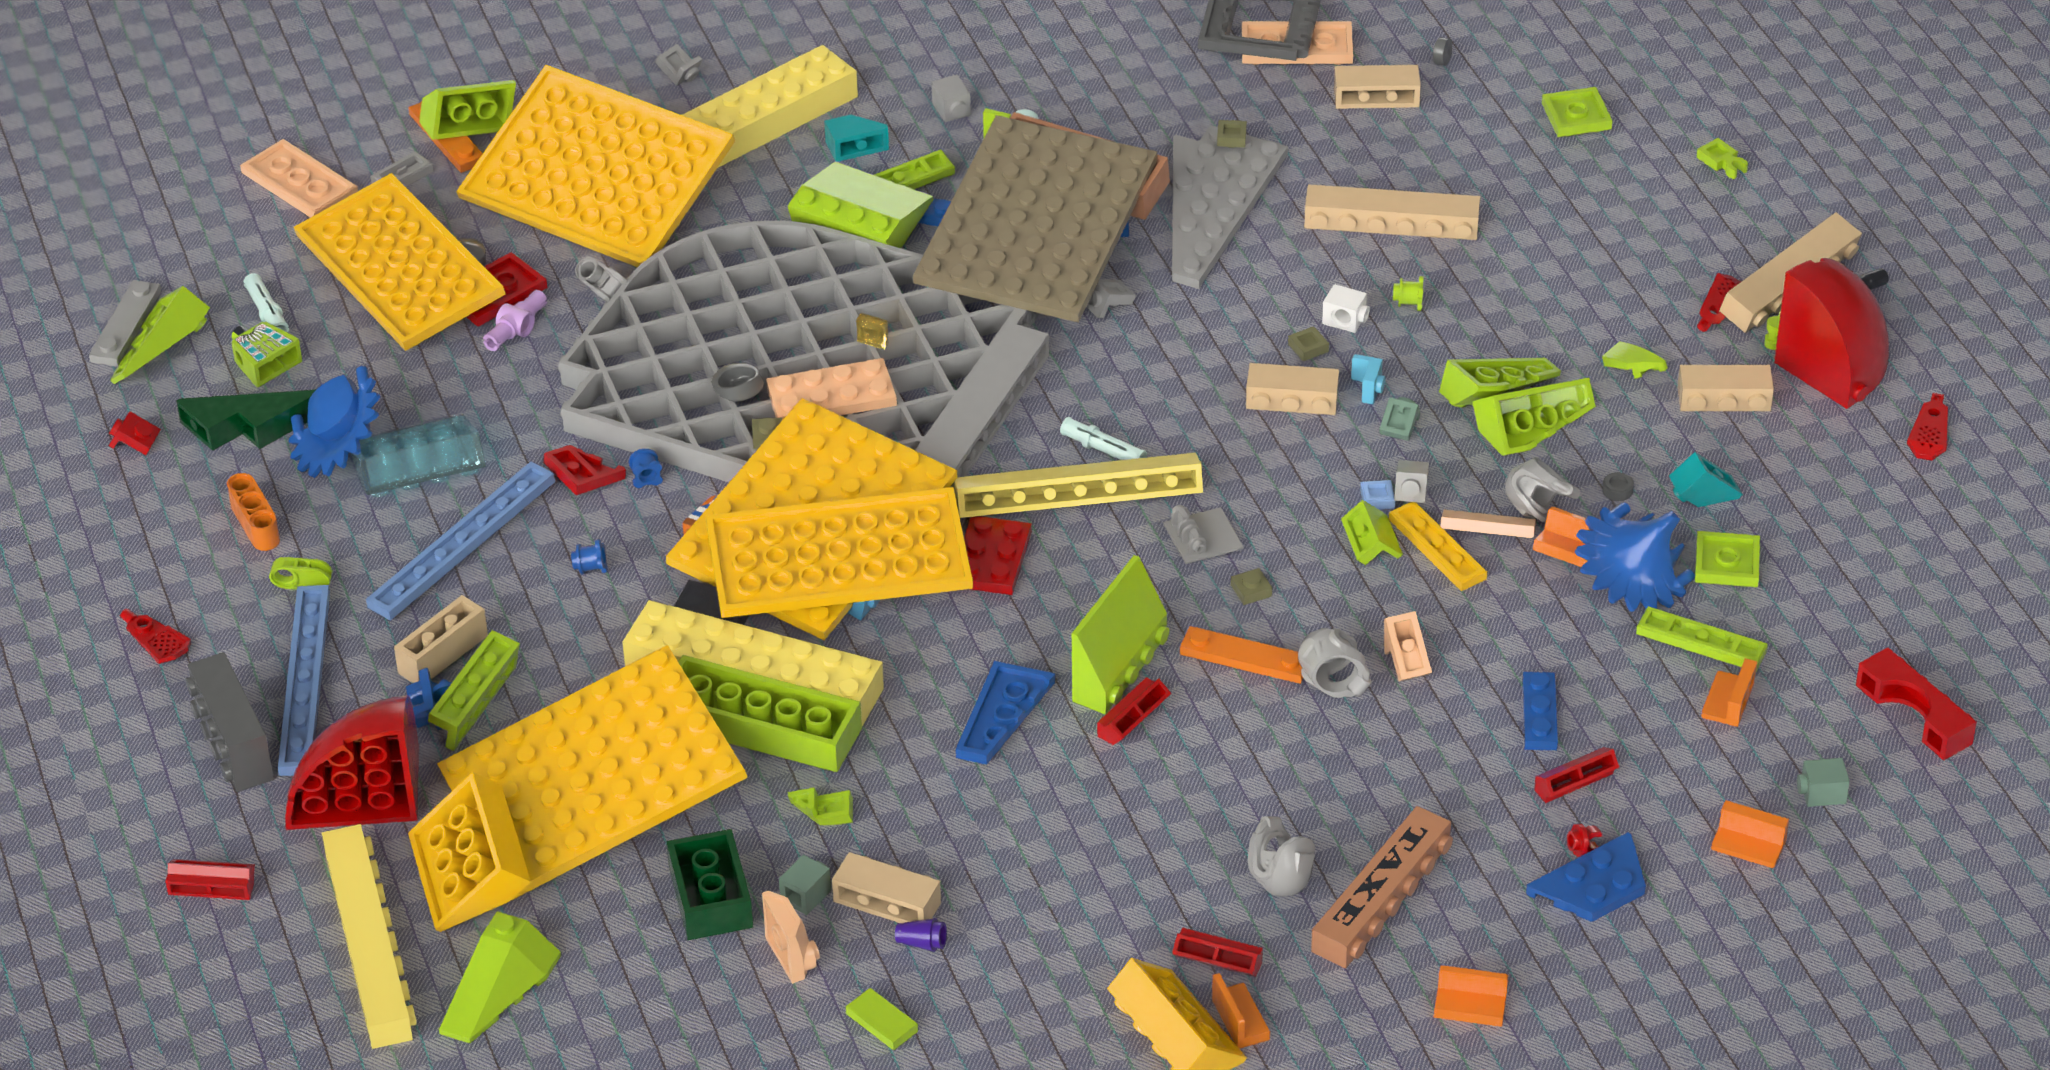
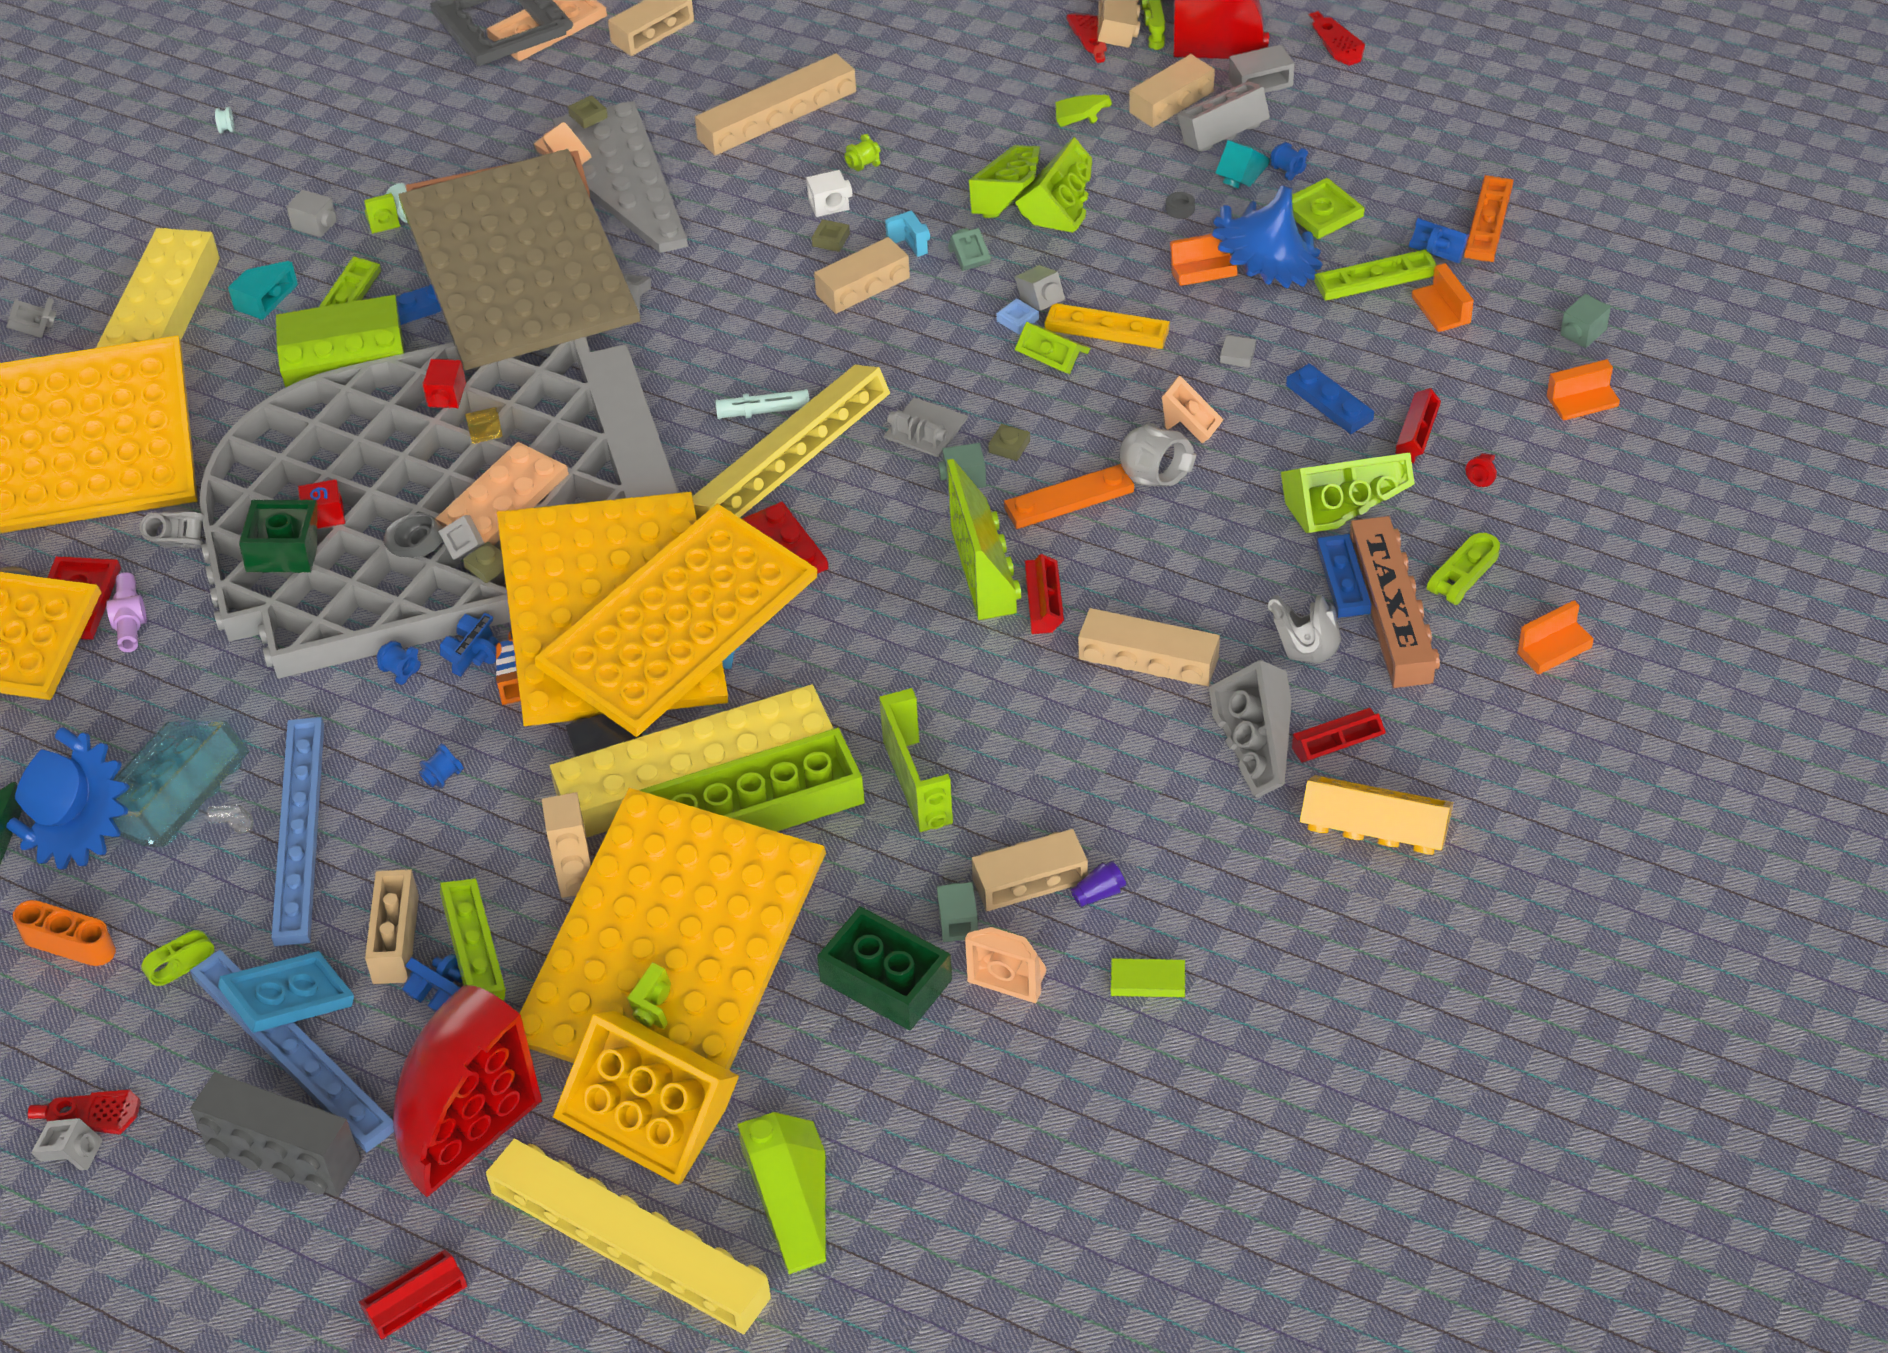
camera: 40 degrees left, 5 degrees up
(121, 646) = (68, 1140): none -> light grey bracket
(333, 637) = (285, 991): none -> dark azure plate
(434, 505) = (234, 815): none -> clear arm
(531, 790) = (649, 992): none -> lime bracket
(581, 470) = (338, 699): red wing -> none
(593, 648) = (567, 841): none -> tan brick
(646, 324) = (280, 536): none -> dark green slope
(699, 489) = (476, 646): none -> blue hips
(701, 320) = (329, 502): none -> red brick
(763, 402) = (461, 537): none -> light grey plate
(824, 809) = (890, 839): lime slope -> none
(880, 283) = (444, 383): none -> red brick
(905, 729) = (927, 799): none -> lime panel
(1000, 709) = (936, 659): blue wing -> none
(1159, 799) = (1149, 647): none -> tan brick
(1176, 893) = (1255, 716): none -> light grey wedge
(1181, 152) = (560, 139): none -> light nougat slope
(1188, 582) = (969, 458): none -> sand green brick
(1239, 1013) = (1408, 772): orange panel -> none
(1367, 843) = (1343, 576): none -> blue plate
(1456, 784) = (1337, 492): none -> lime wedge
(1473, 901) = (1465, 567): none -> lime plate
(1488, 523) = (1127, 286): light nougat tile -> none
(1514, 628) = (1238, 351): none -> light grey tile
(1534, 486) = (1132, 234): light grey helmet -> none
(1595, 880) = (1523, 494): blue wing -> none
(1734, 433) = (1223, 116): none -> light grey brick
(1749, 503) = (1289, 160): none -> blue brick
(1786, 644) = (1439, 240): none -> blue hips
(1822, 416) = (1266, 67): none -> light grey piece
(1845, 657) = (1489, 218): none -> orange plate
(1890, 679) = (1604, 229): red arch -> none

